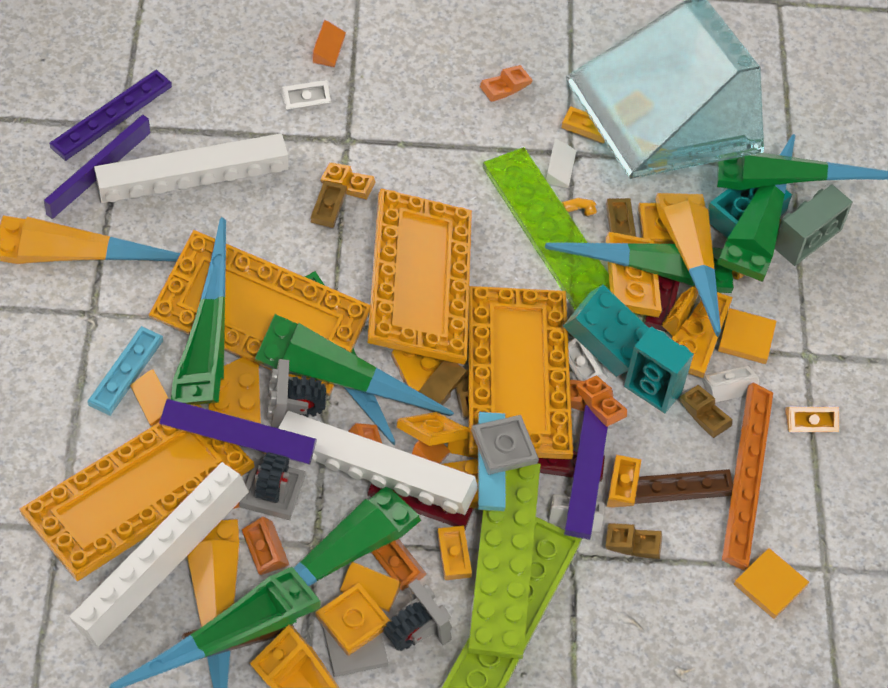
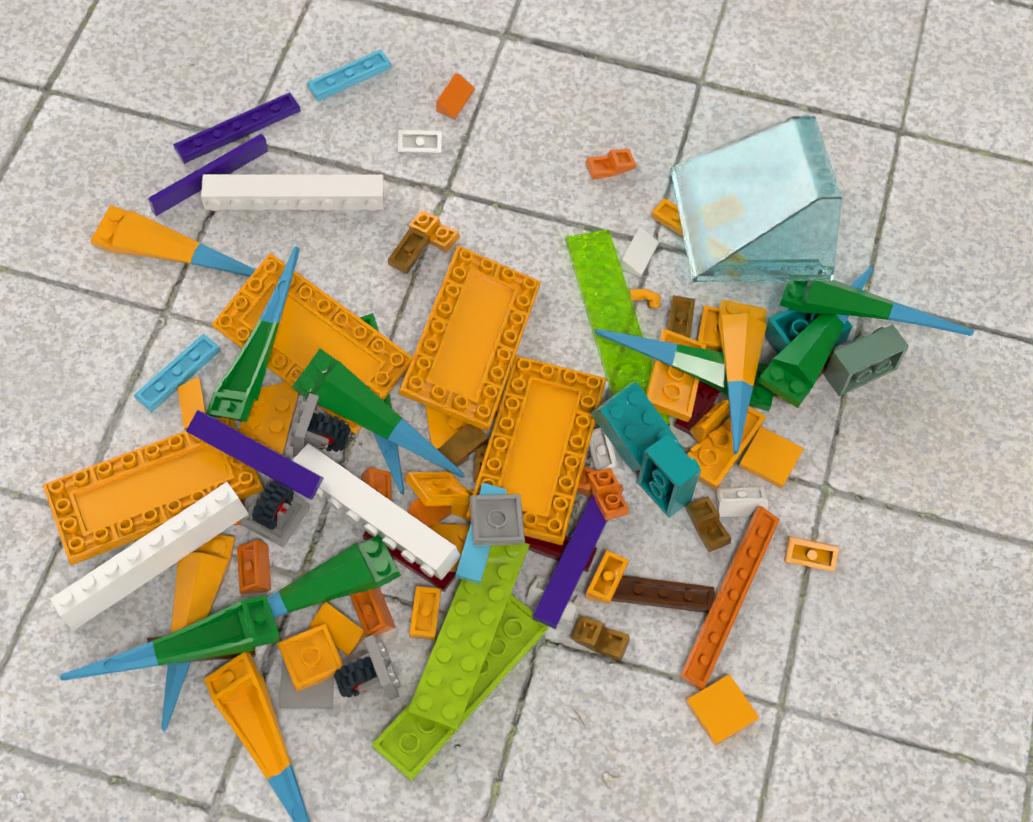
camera: 15 degrees right, 5 degrees up
(212, 42) = (349, 75): none -> medium azure tile

